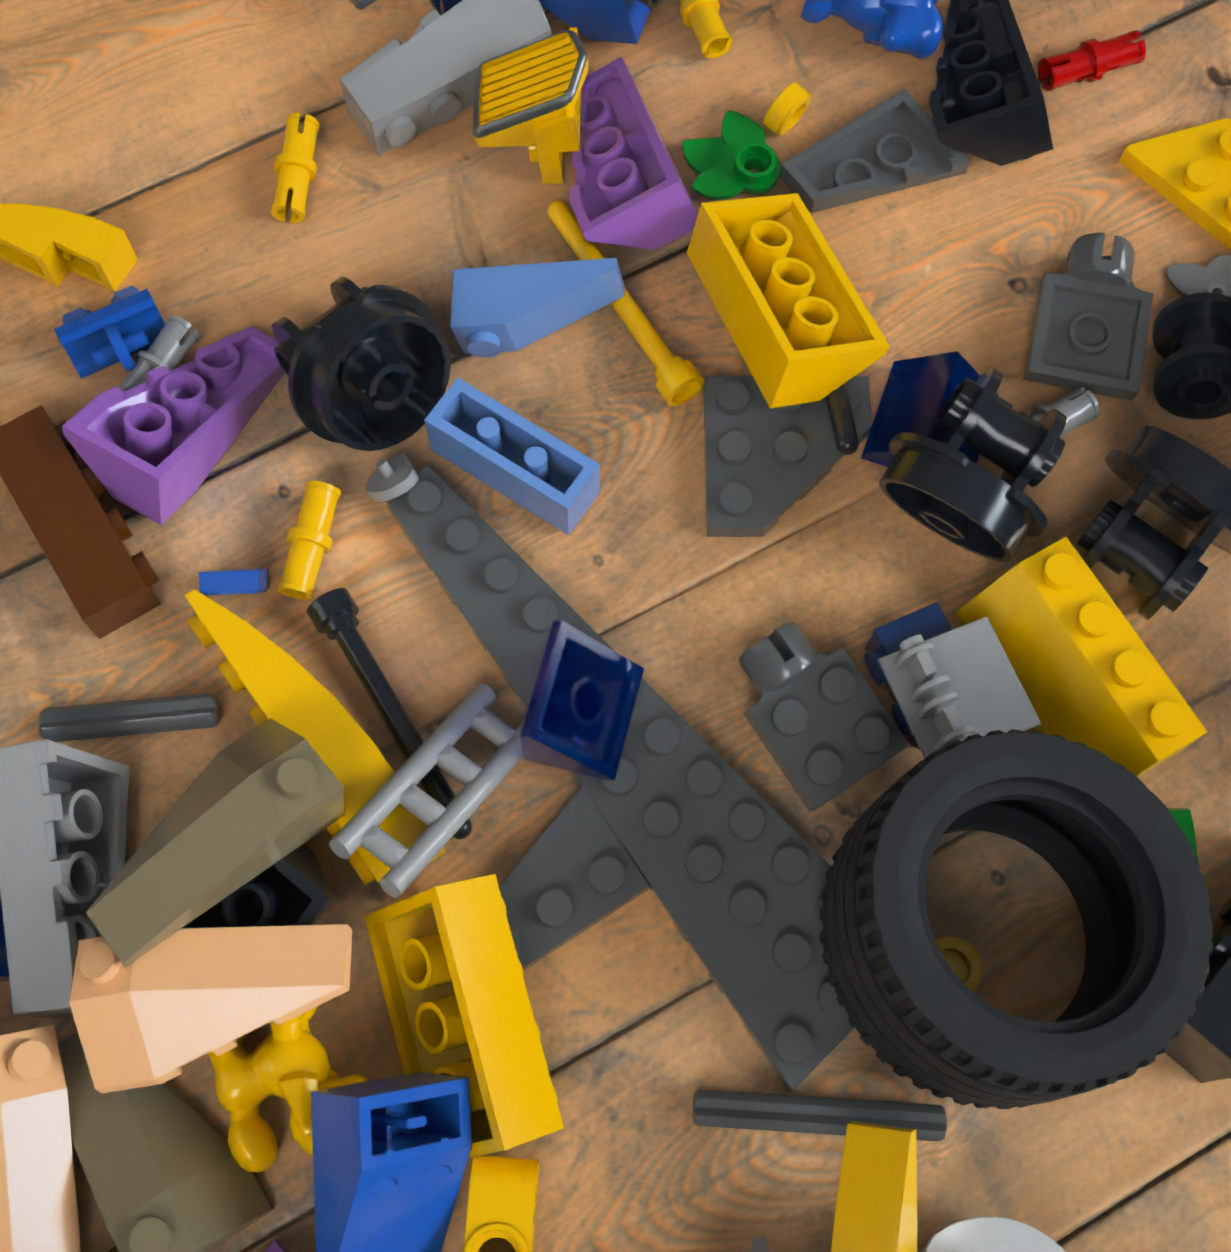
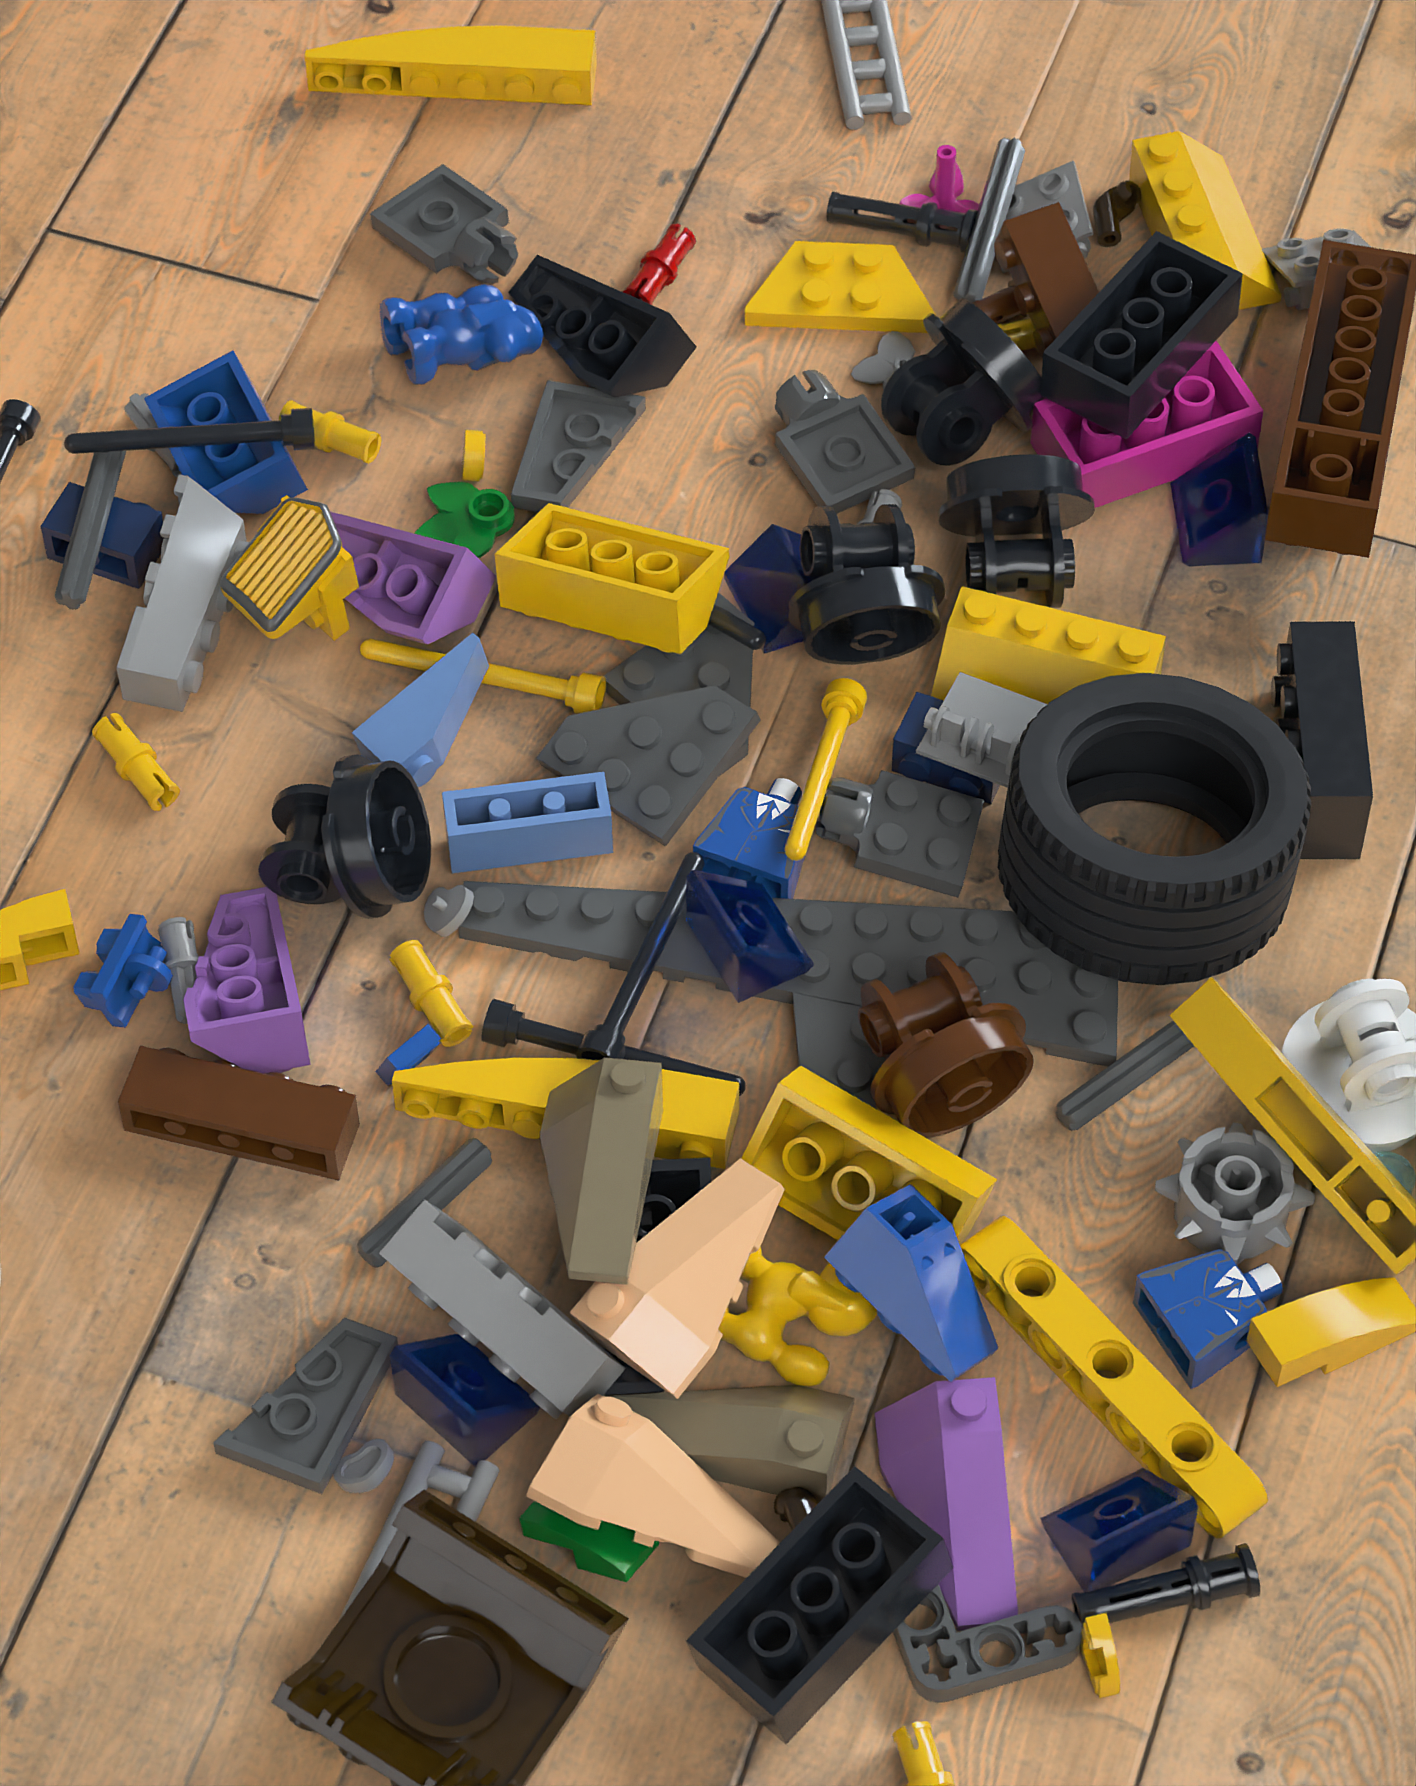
camera: 40 degrees left, 15 degrees down
(380, 705) = (608, 1038): none -> black piece
(441, 820) = (684, 1070): light grey bar -> none
(649, 919) = (942, 1049): none -> reddish brown piece
(673, 478) = (654, 753): none -> dark grey plate
(683, 625) = (751, 836): none -> blue torso
(871, 559) = (842, 706): none -> yellow piece

